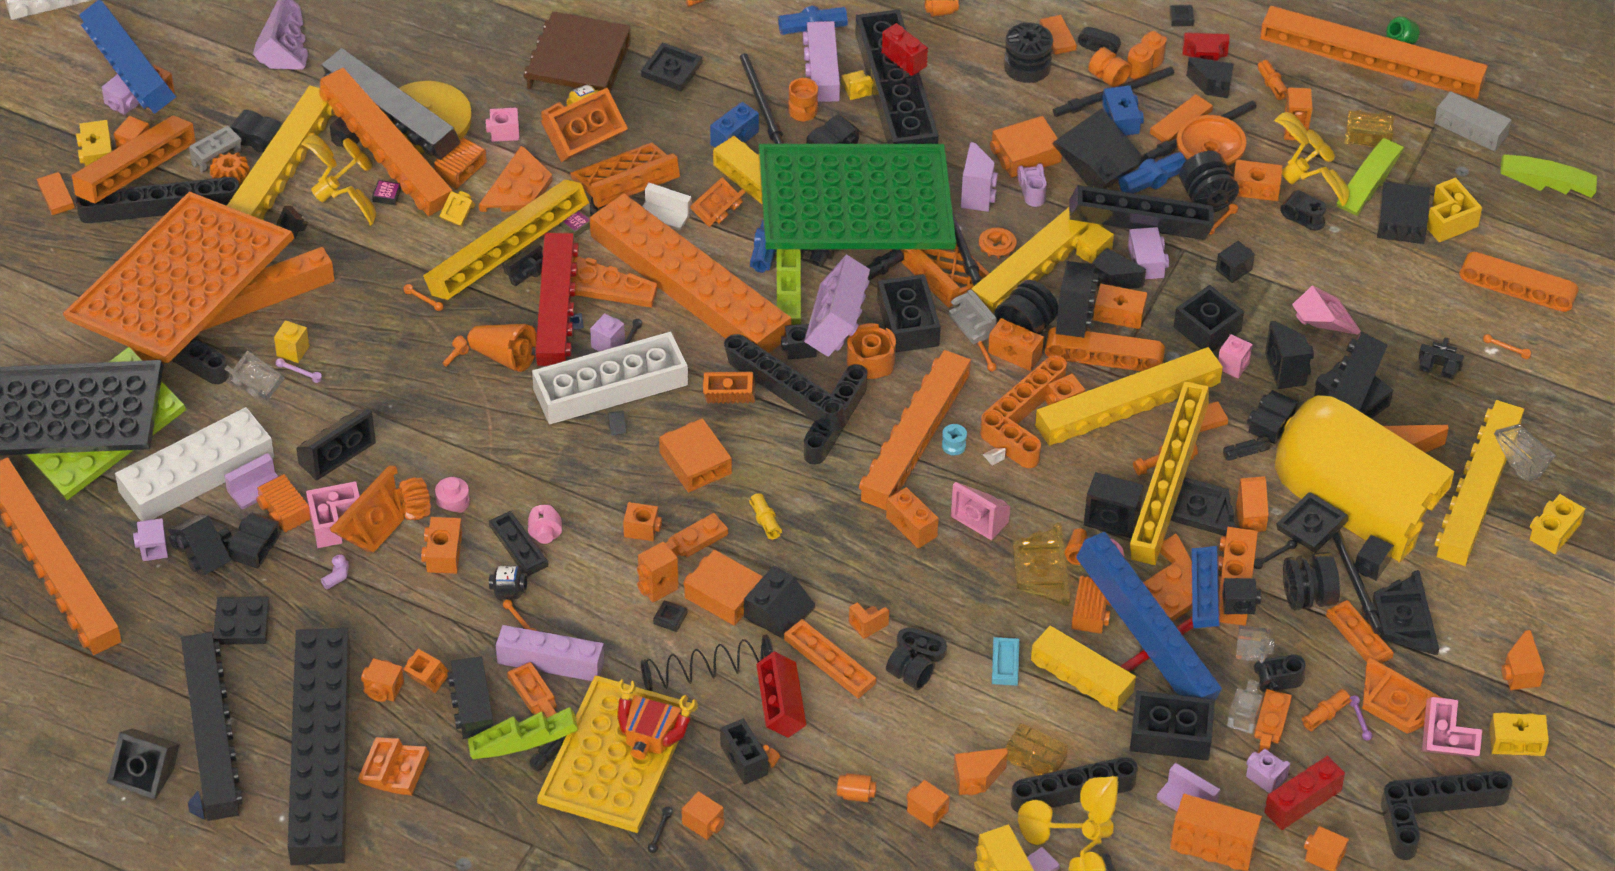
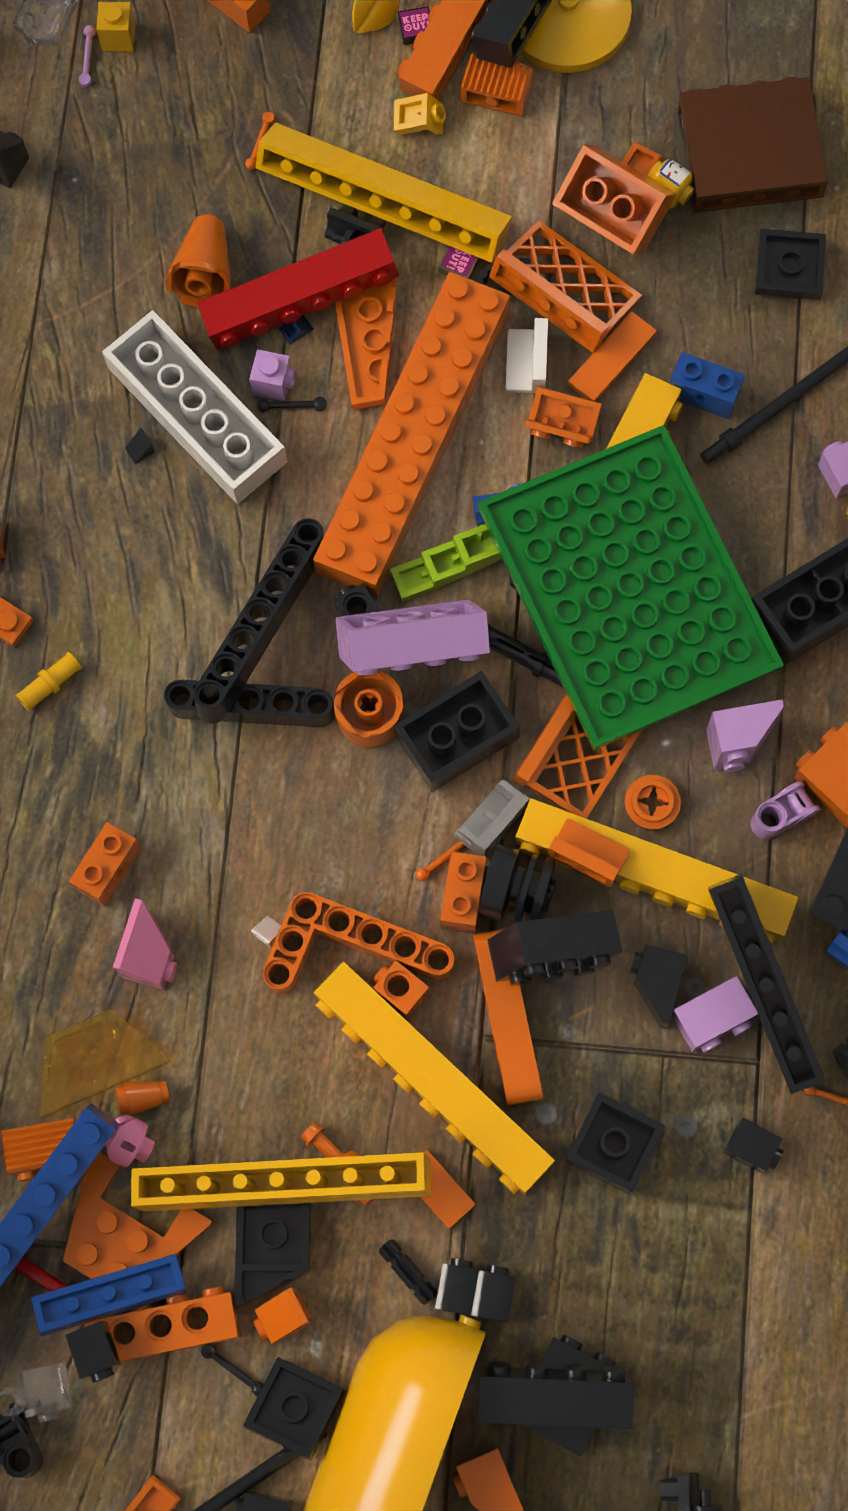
camera: 75 degrees right, 25 degrees up
(460, 346) = (188, 216): orange hand -> none
(503, 124) = (587, 119): bright pink brick -> none
(518, 184) = (497, 169): orange wing -> none
(691, 175) = (612, 357): none -> orange tile
(695, 455) = (115, 557): orange brick -> none
(729, 387) = (234, 554): orange brick -> none
(803, 99) = (799, 450): orange wheel -> none
(835, 131) = (747, 517): black brick -> none
(915, 429) = (263, 814): orange brick -> none
(958, 444) = (268, 877): medium azure wheel -> none
(970, 265) = (580, 782): black bar -> none
(1022, 268) = (588, 852): none -> orange panel
(1094, 242) = (699, 935): yellow brick -> none
(1113, 505) = (212, 1121): black brick -> none
(1120, 306) = (602, 991): orange brick -> none
(1235, 356) = (564, 1202): bright pink brick -> none
(1288, 356) = (582, 1282): black slope -> none
(1311, 581) = (172, 1440): black wheel -> none
(1324, 311) = (704, 1312): bright pink slope -> none

